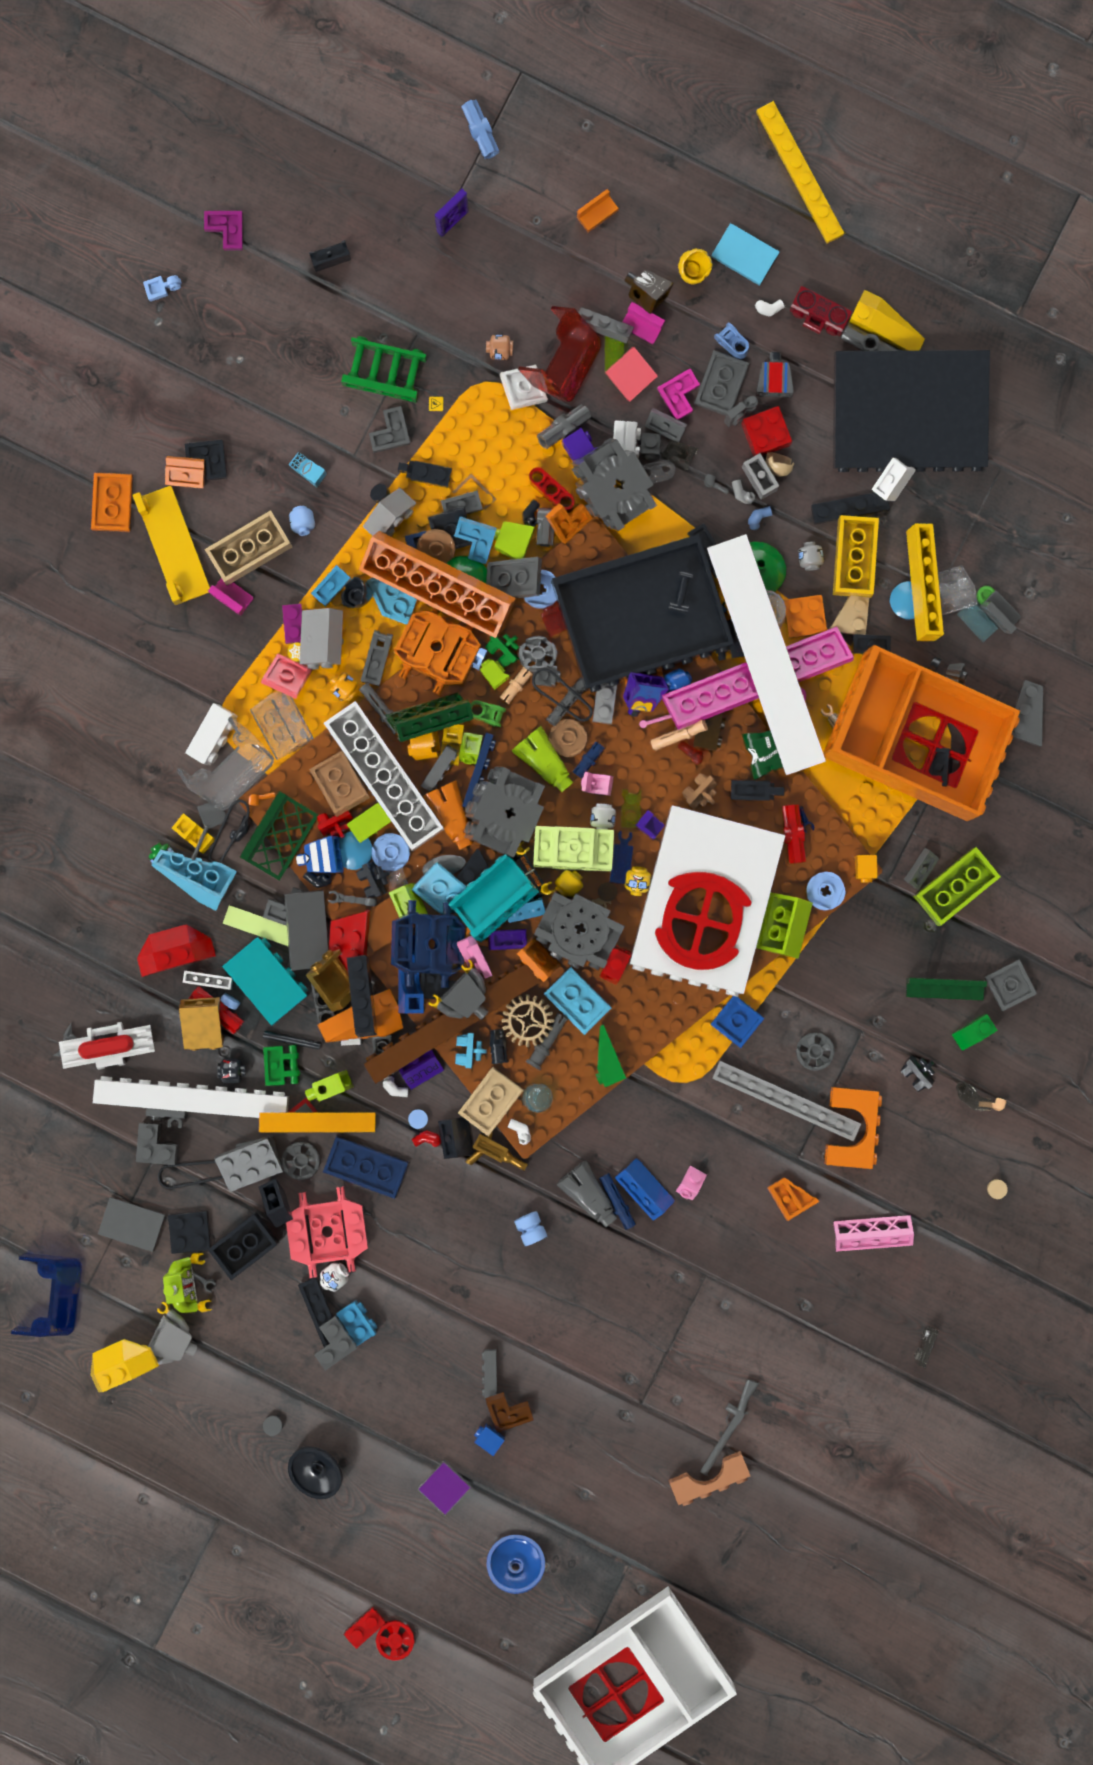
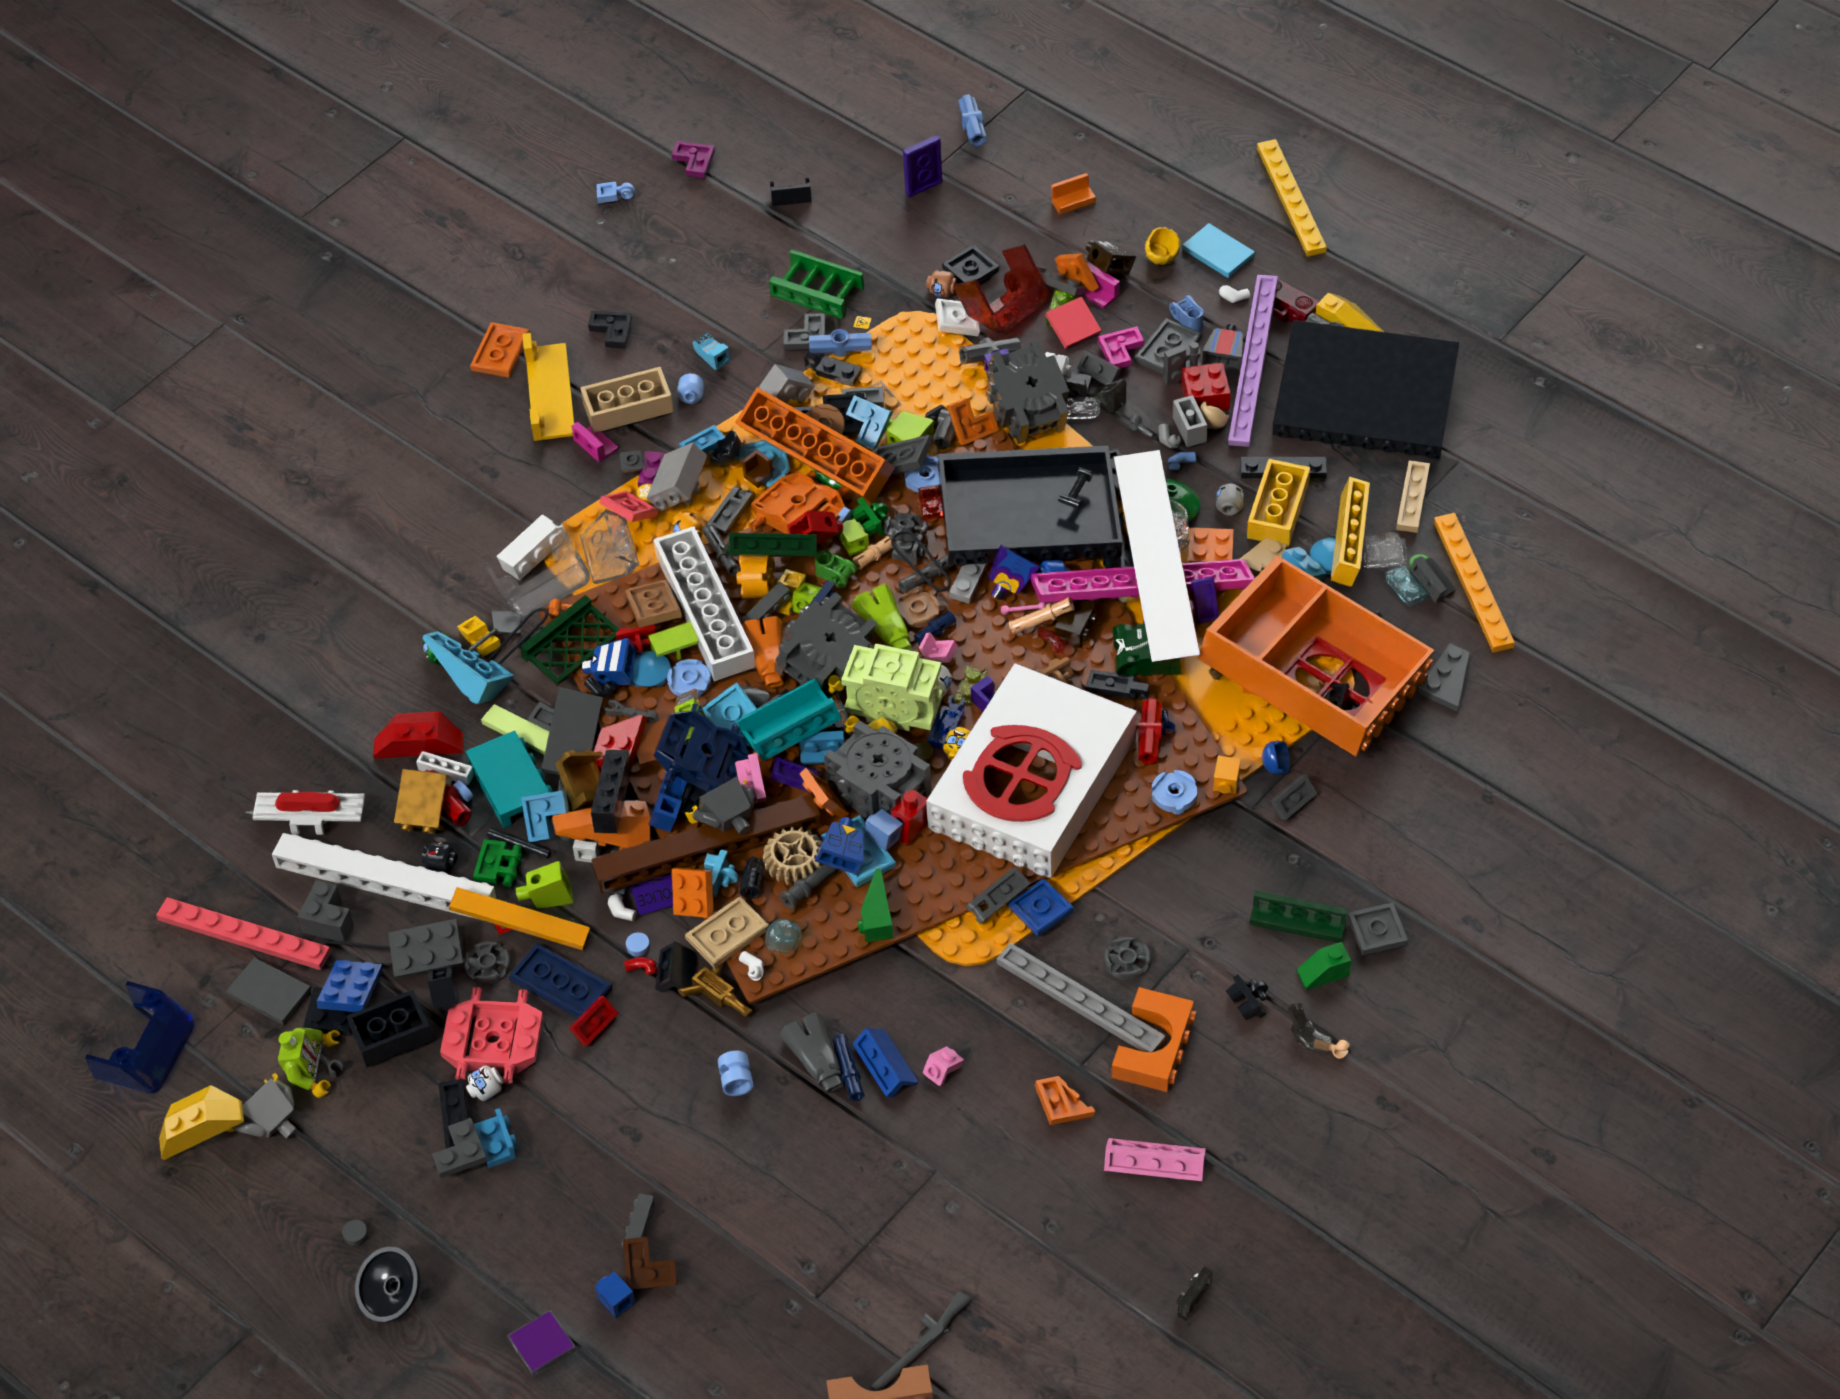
camera: 15 degrees right, 35 degrees down
(92, 1175) = (243, 933): none -> coral plate
(157, 1114) = (352, 885): dark grey plate -> none
(184, 472) = (583, 332): orange plate -> none
(198, 1213) = (349, 986): none -> blue plate
(274, 622) = (631, 461): none -> dark grey bracket
(304, 1015) = (537, 812): none -> dark azure plate
(376, 878) = (665, 695): black hips -> none
(390, 614) = (757, 468): none -> reddish brown panel
(404, 1201) = (593, 1021): none -> red plate
(438, 440) = (840, 342): none -> medium blue piece
(453, 1073) = (692, 892): none -> orange plate
(462, 685) = (816, 522): none -> red torso
(521, 320) = (971, 265): none -> black plate
(548, 481) = (955, 389): red beam -> none
(567, 1011) = (842, 847): none -> blue torso
(595, 983) = (883, 829): none -> medium blue brick
(621, 311) = (1076, 267): none -> orange wing
(702, 1022) = (998, 894): none -> dark grey plate
(784, 925) = (1119, 814): lime slope -> none
(804, 392) = (1253, 361): none -> lavender plate
(814, 685) = (1205, 600): none -> dark purple plate
(888, 617) = (1300, 558): none -> dark azure plate
(893, 480) = (1335, 443): white panel -> none
(900, 833) = (1276, 757): none -> blue hair
(957, 886) = (1331, 816): lime brick -> none
(969, 521) = (1413, 496): none -> tan plate
(997, 1189) = (1320, 1139): tan tile -> none
(1034, 605) = (1474, 582): none -> light orange plate

